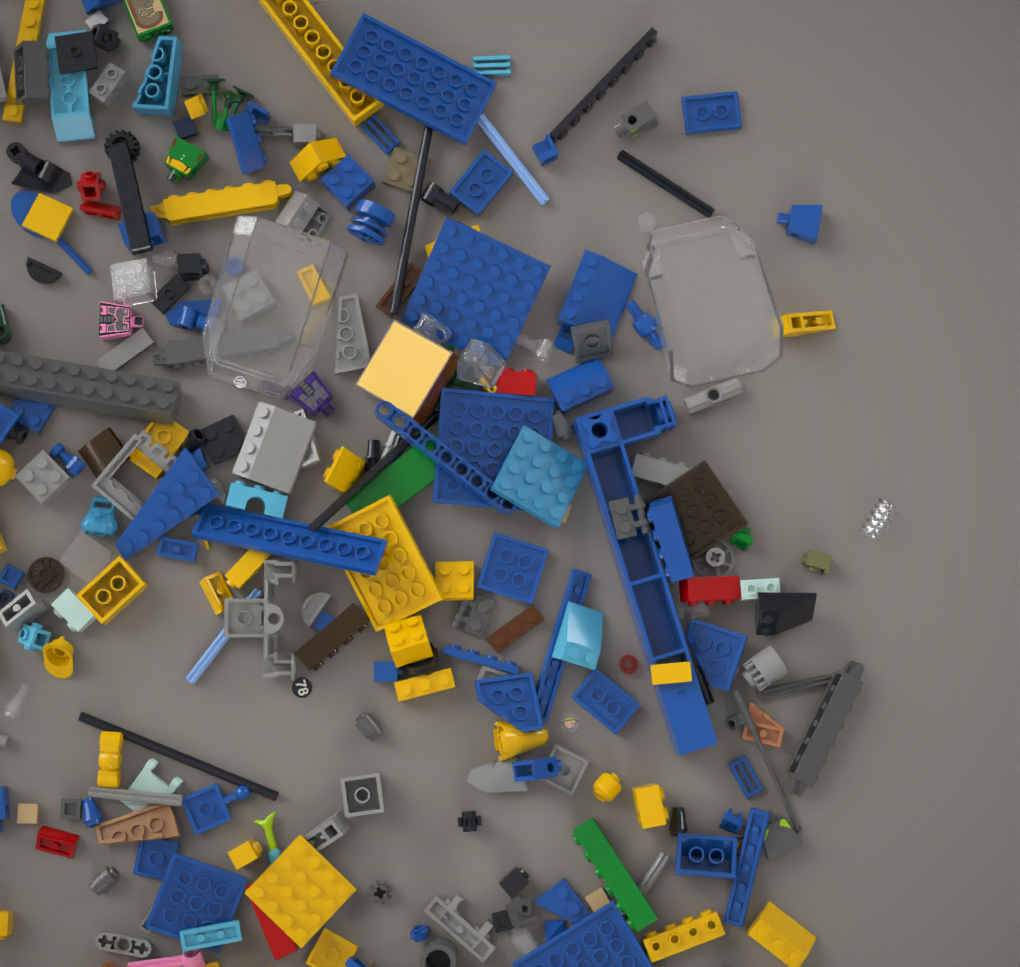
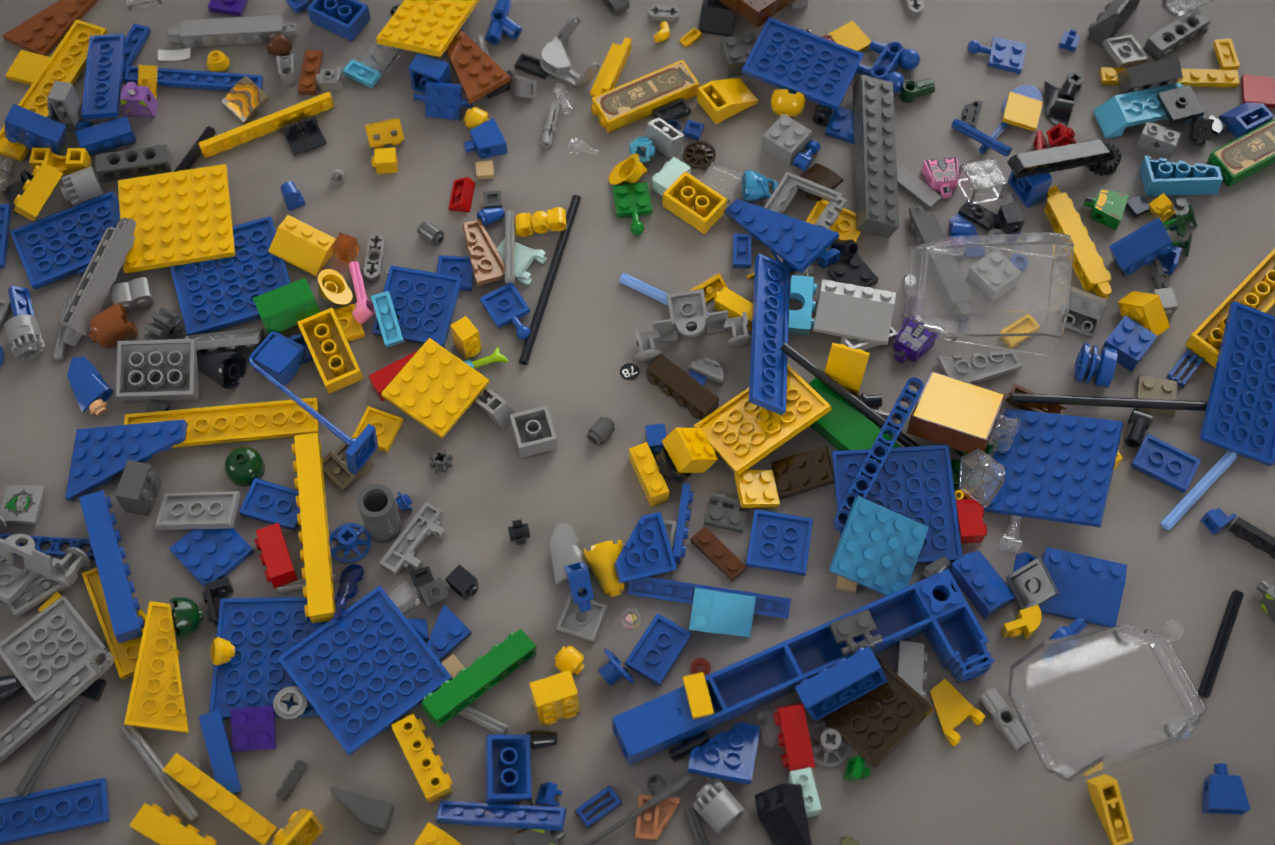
camera: 80 degrees right, 20 degrees down
(76, 269) = (981, 137): none -> blue axle
(96, 656) = (632, 201): none -> green plate
(445, 533) = (803, 472): none -> dark brown plate
(623, 746) = (612, 671): none -> blue wheel
(625, 352) = (1026, 623): none -> yellow brick
(696, 440) = (953, 710): none -> yellow flag

